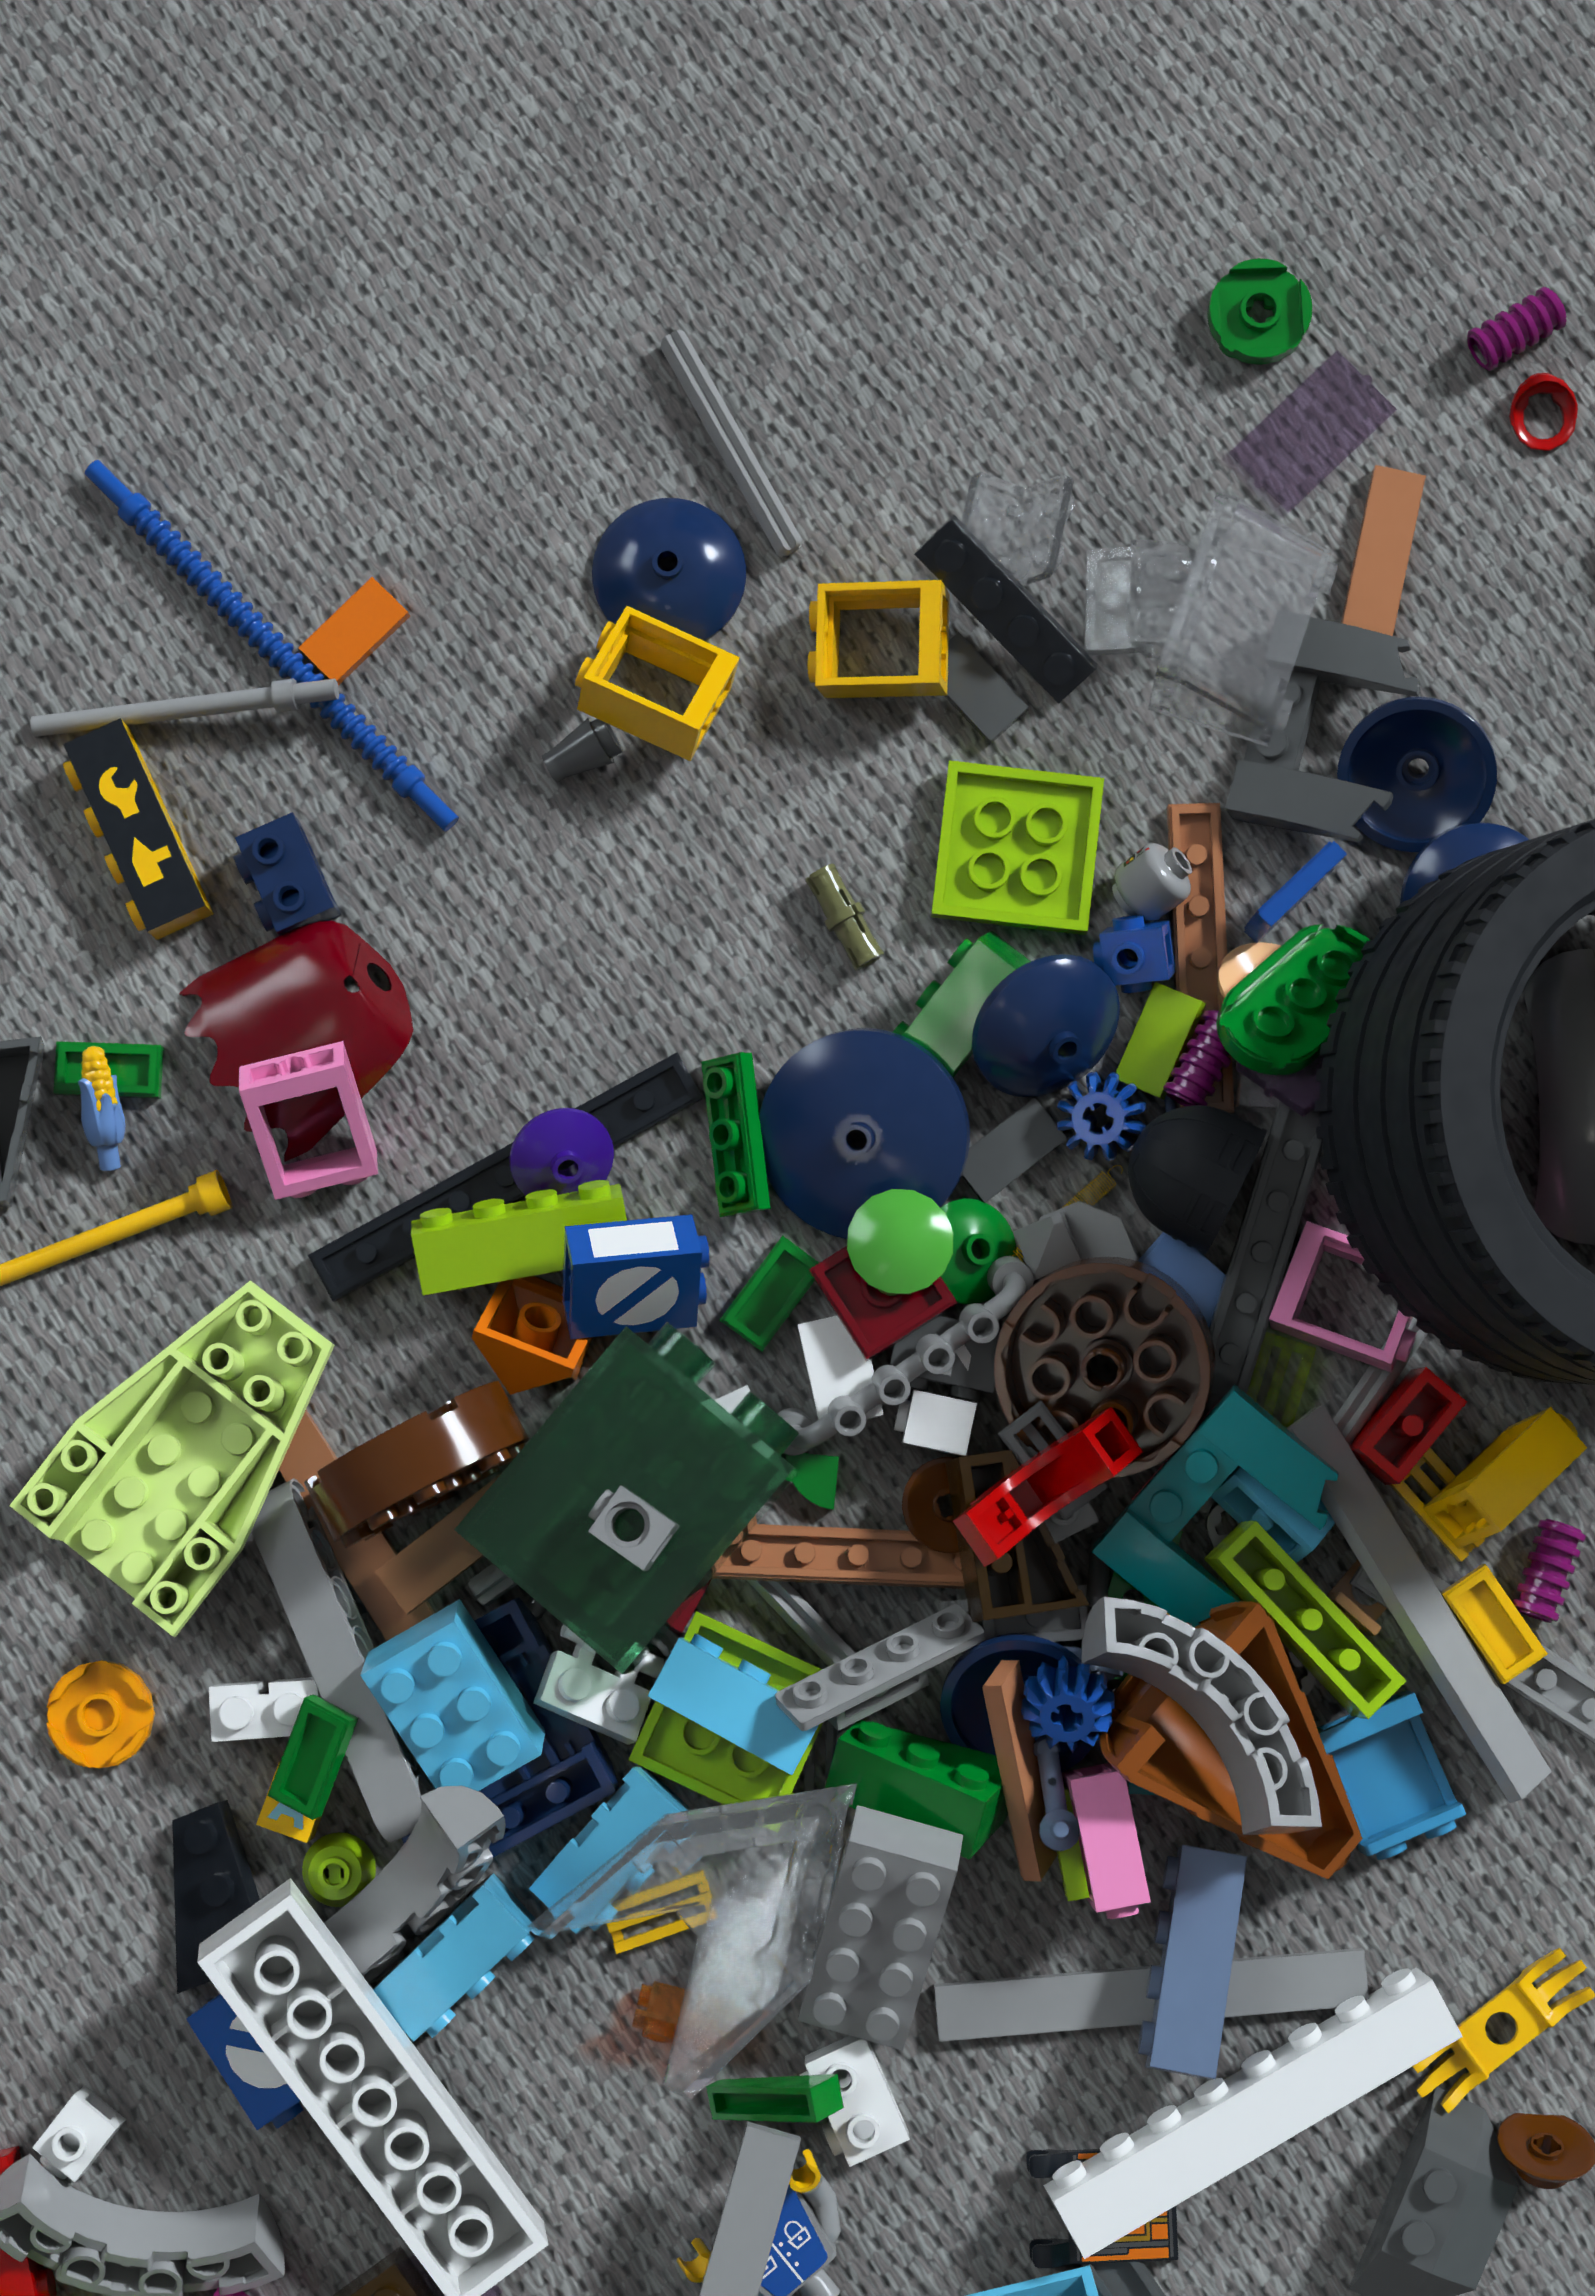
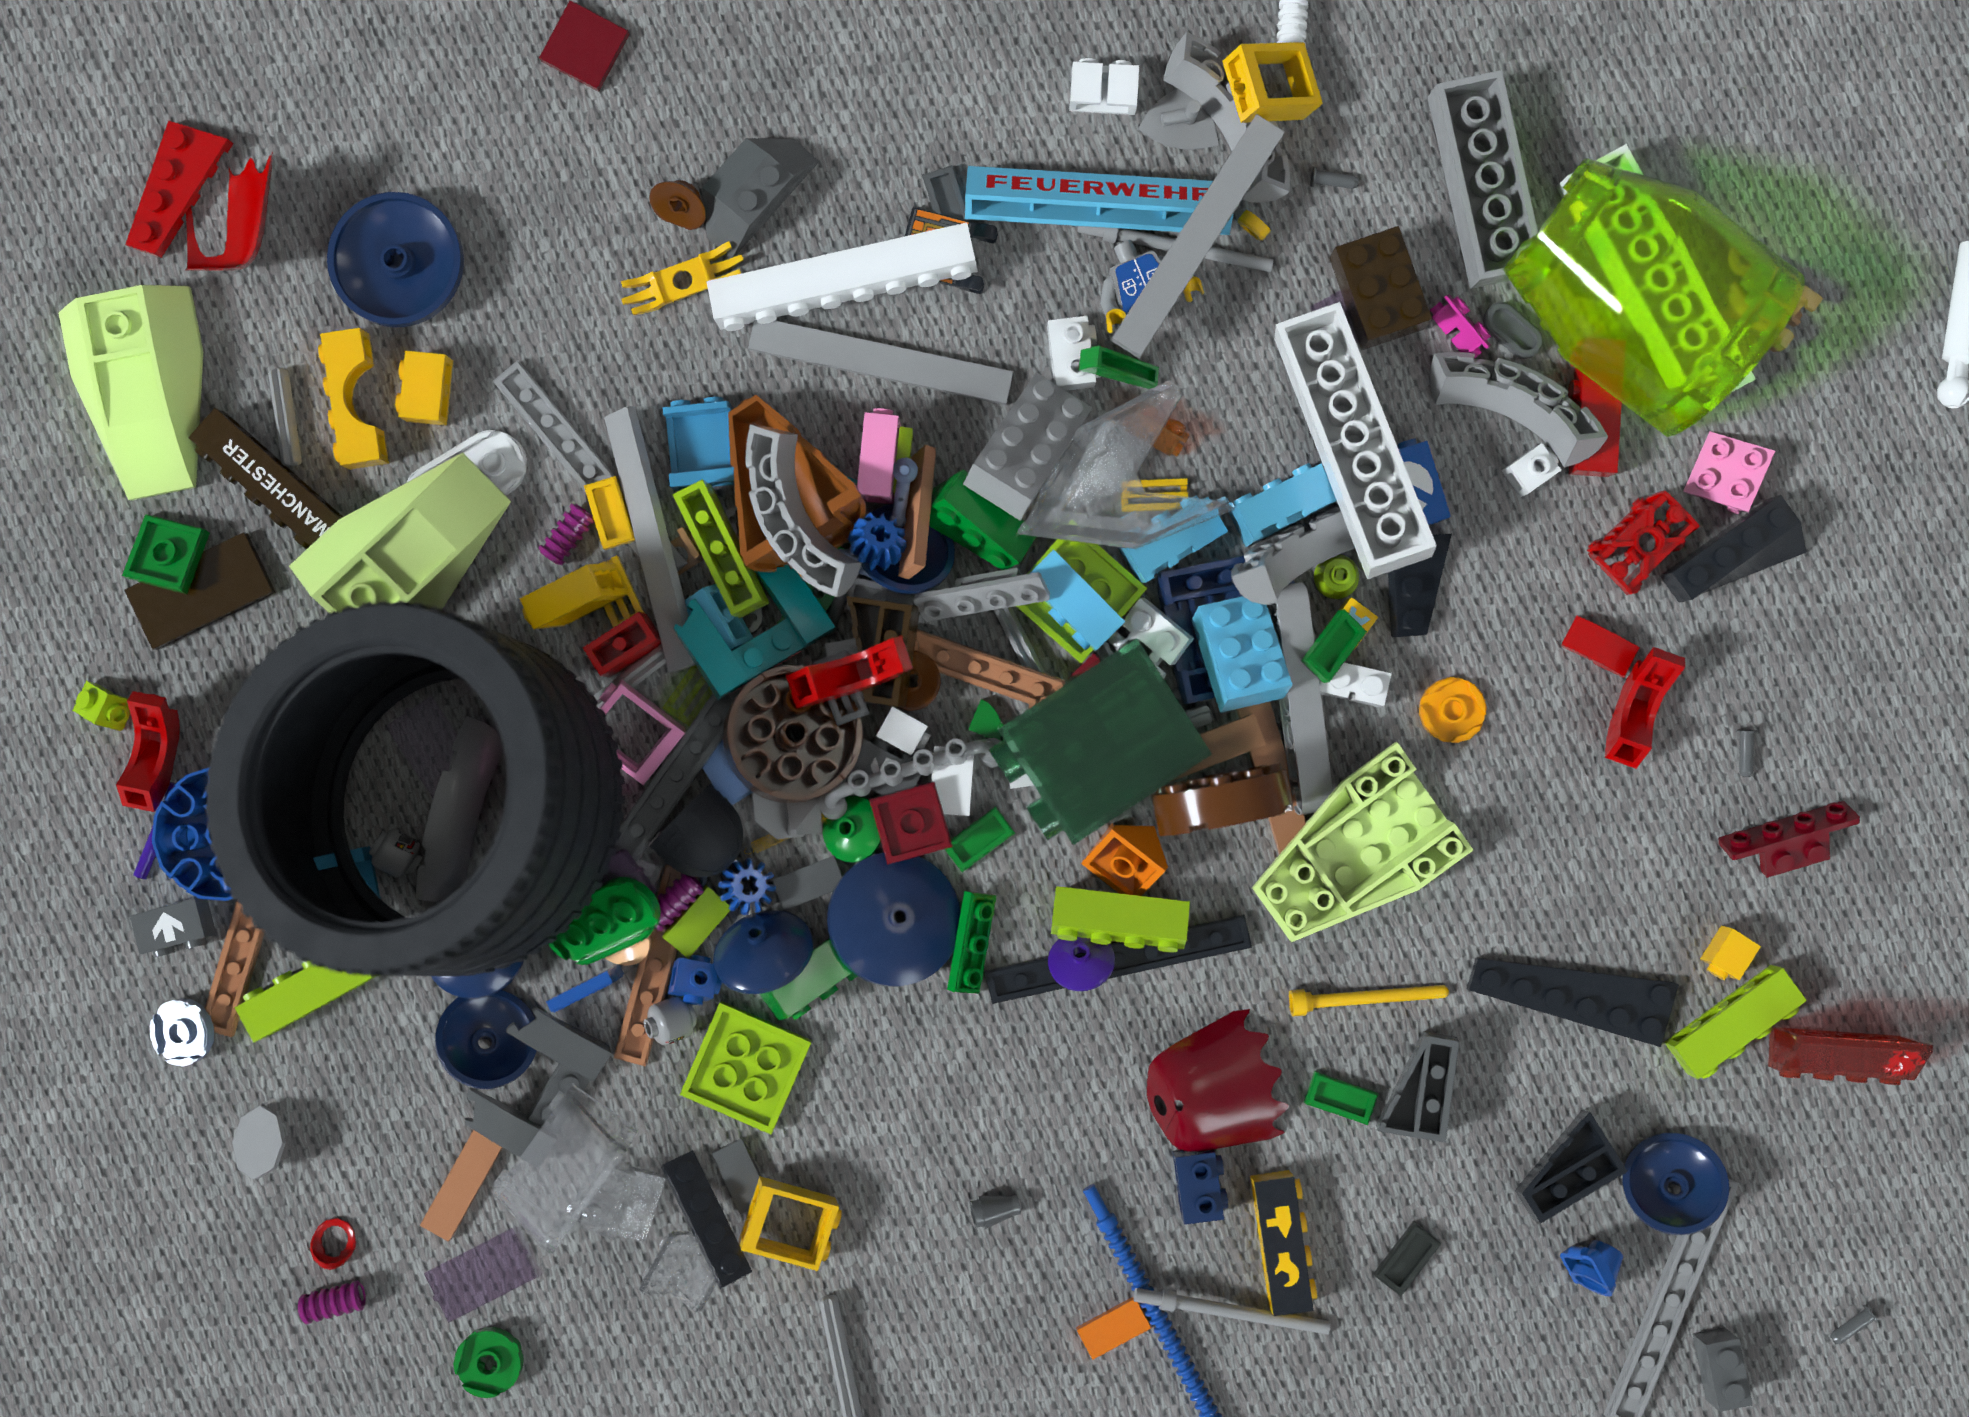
camera: 165 degrees left, 5 degrees up
(101, 1108) = (1352, 1075): medium blue piece -> none
(297, 1076) = (1228, 1058): bright pink window -> none
(633, 1275) = (1059, 875): blue brick -> none
(656, 1533) = (1094, 712): light grey brick -> none
(669, 650) = (920, 1254): yellow window -> none
(693, 596) = (912, 1284): dark blue dish -> none
(844, 917) = (865, 1056): olive pin -> none
(900, 1242) = (892, 846): bright green dish -> none
(1195, 1962) = (849, 371): sand blue brick -> none

